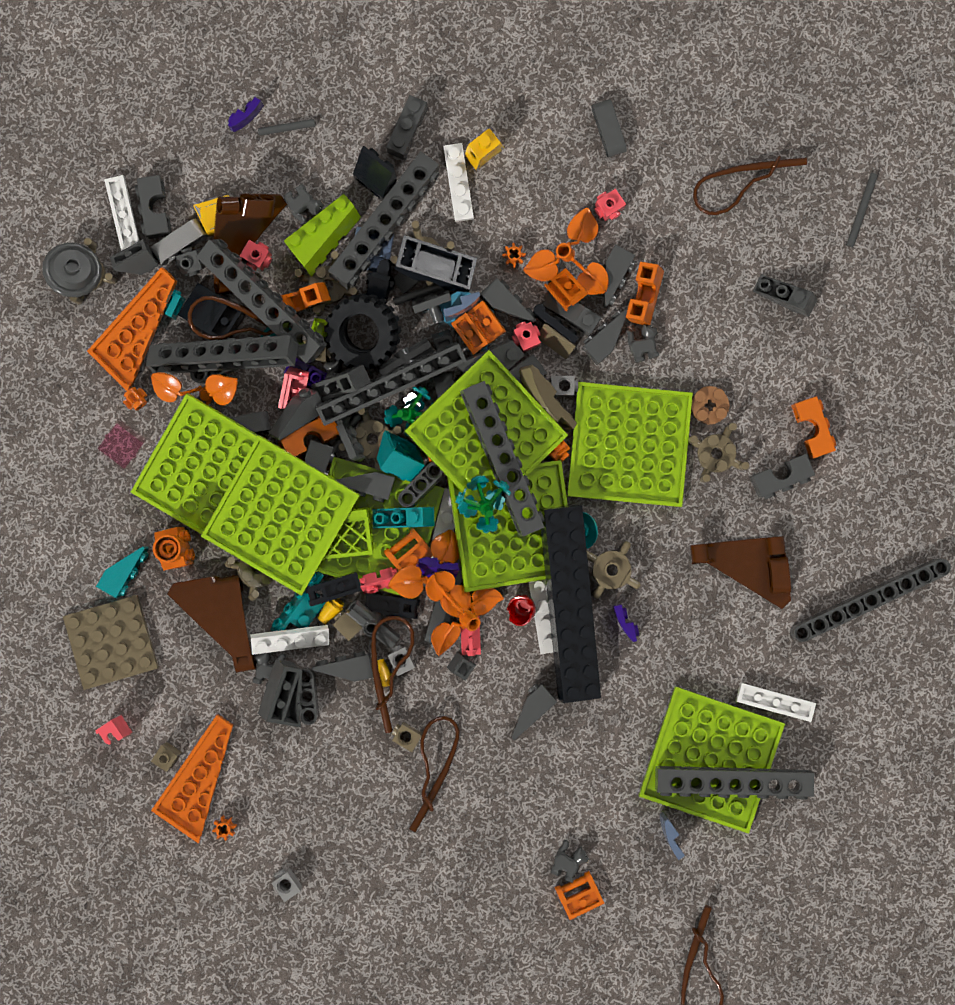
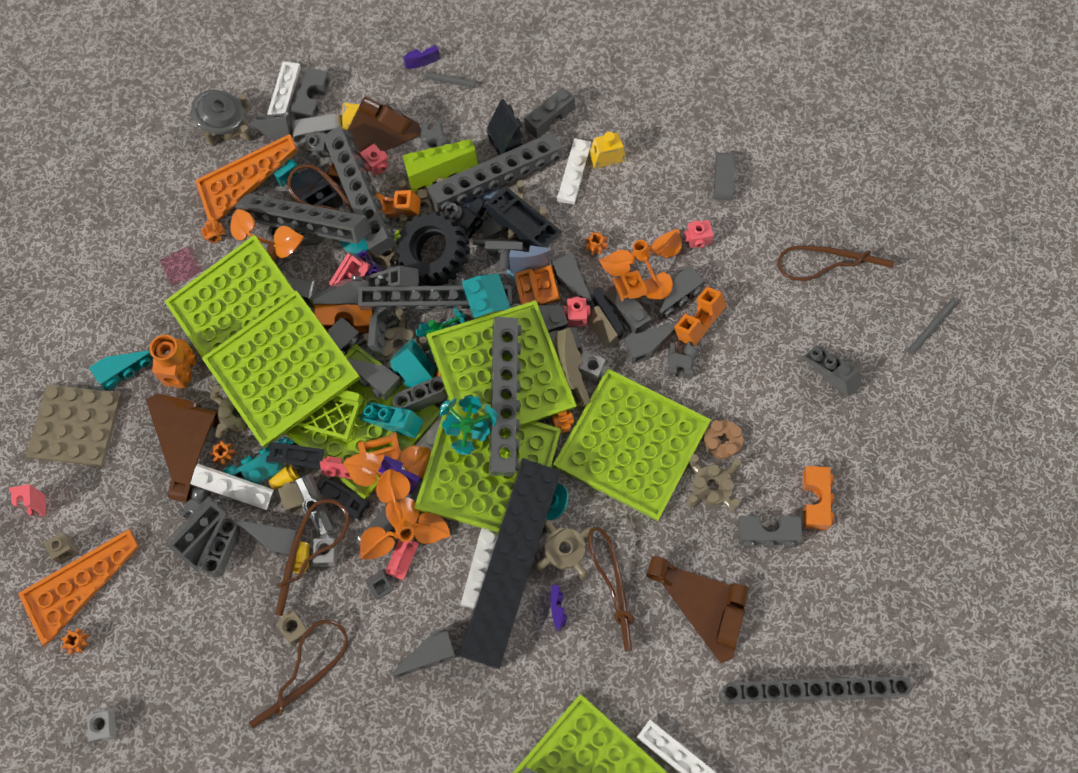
camera: 25 degrees right, 20 degrees down
(257, 609) = (218, 450): none -> orange gear
(367, 280) = (451, 207): none -> dark grey bush
(441, 367) = (485, 295): none -> teal slope
(521, 610) = (461, 551): red hair -> none
(680, 600) = (620, 606): none -> reddish brown piece

